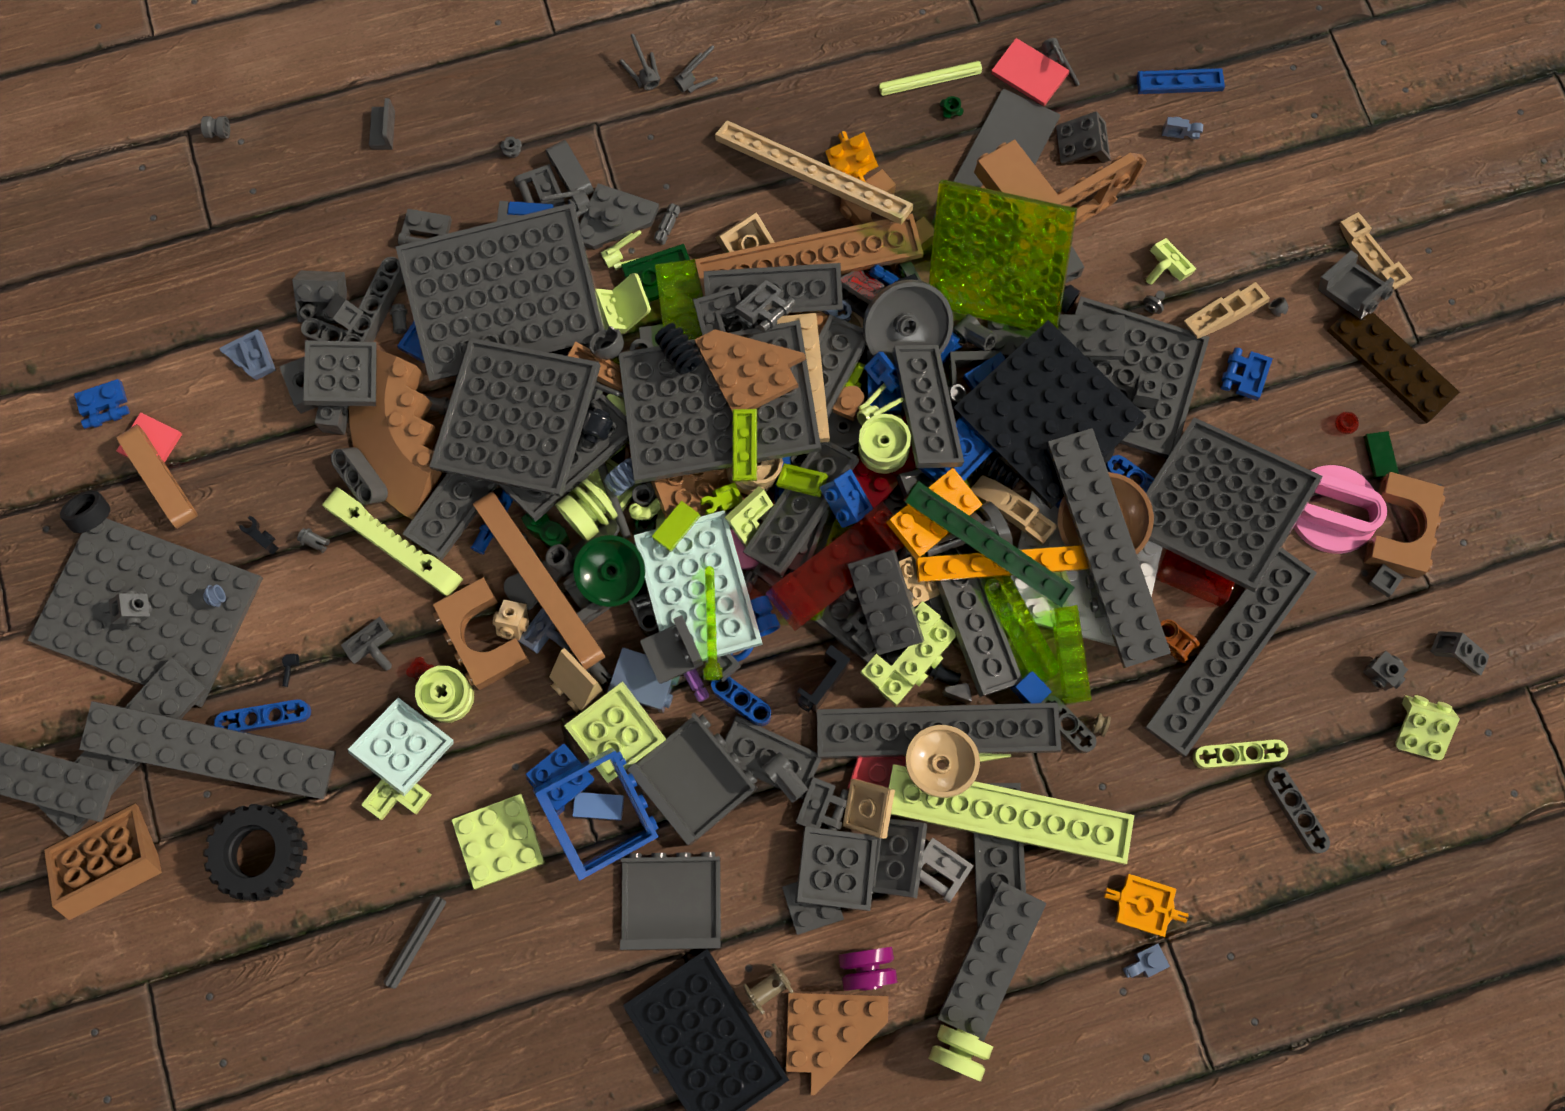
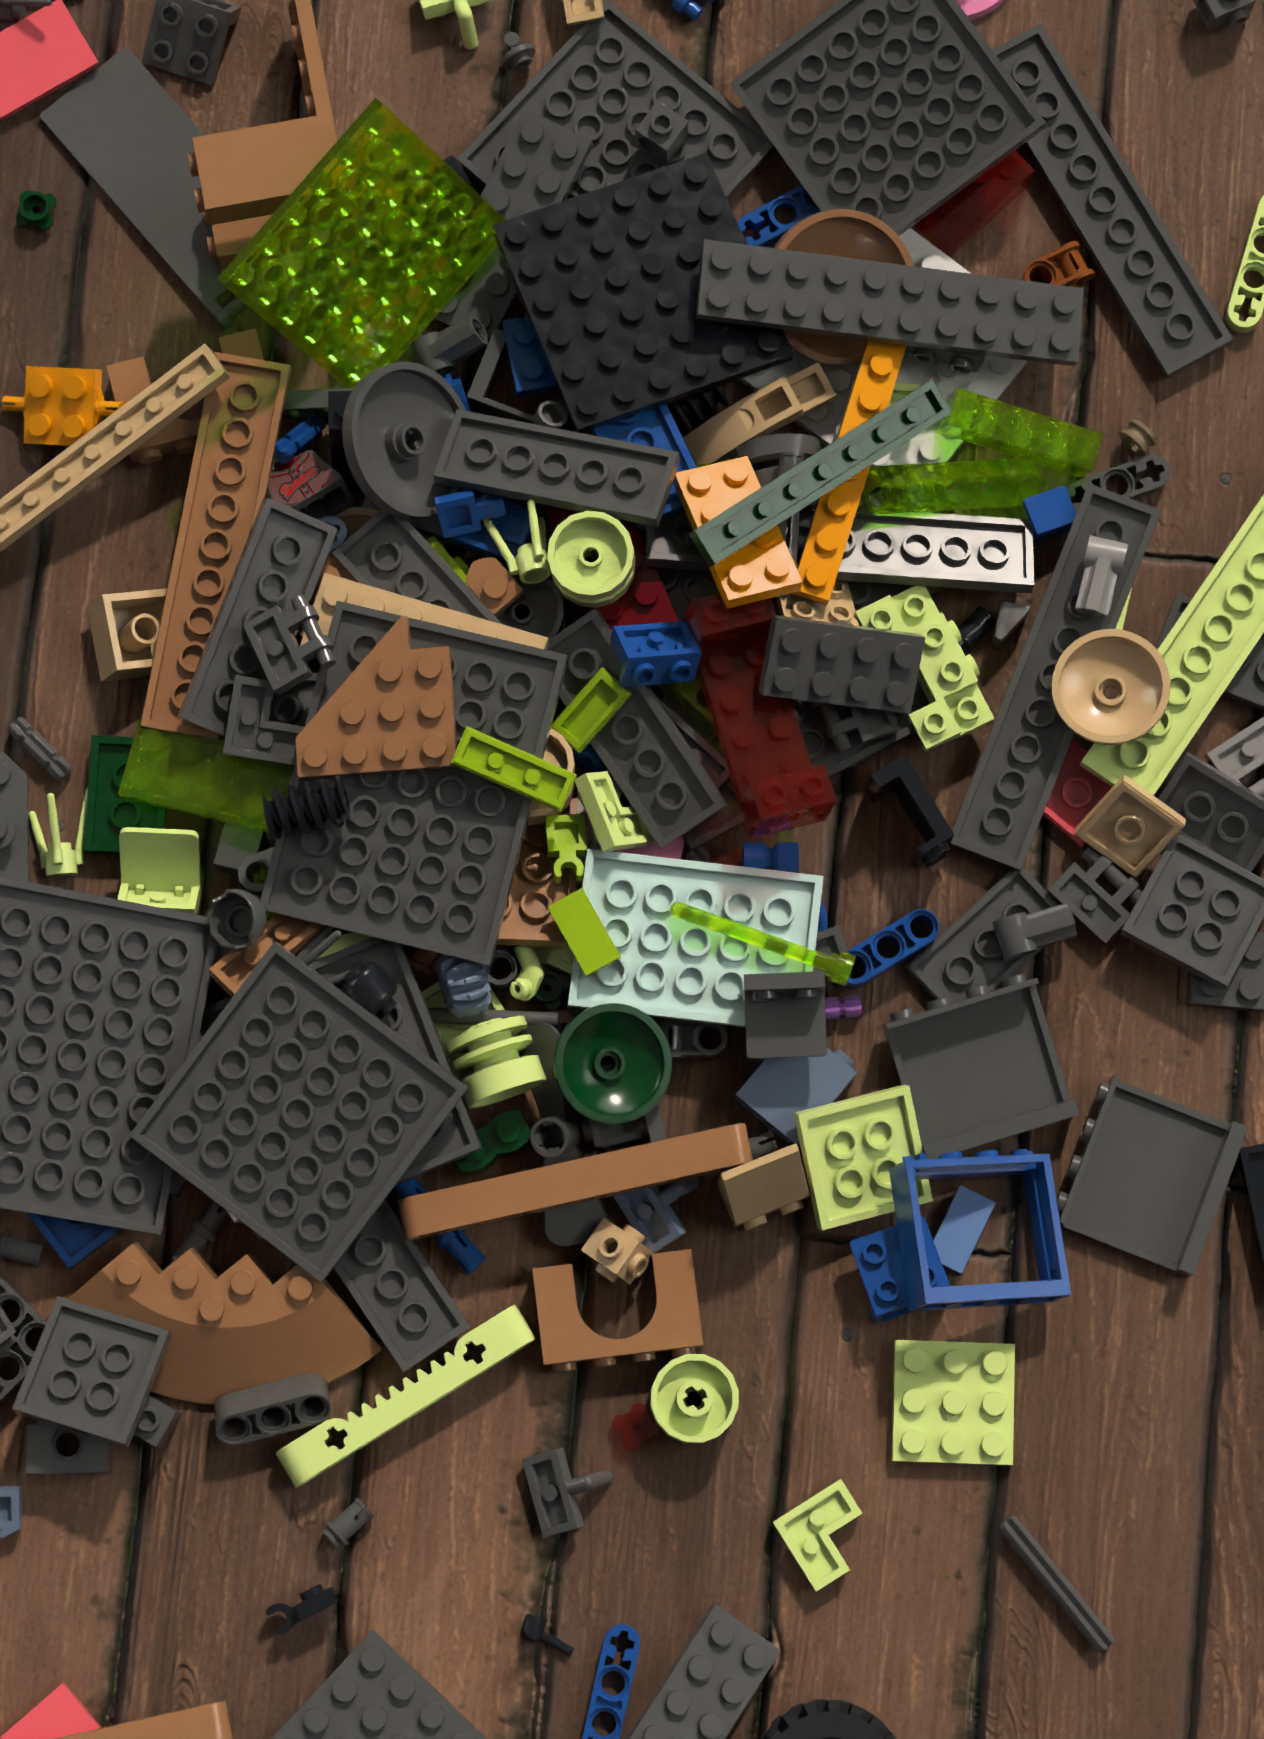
camera: 70 degrees left, 5 degrees up
(214, 595) = (382, 1710): sand blue plate -> none
(400, 746) = (750, 1496): light aqua plate -> none
(1012, 728) = (1102, 566): none -> light grey piece

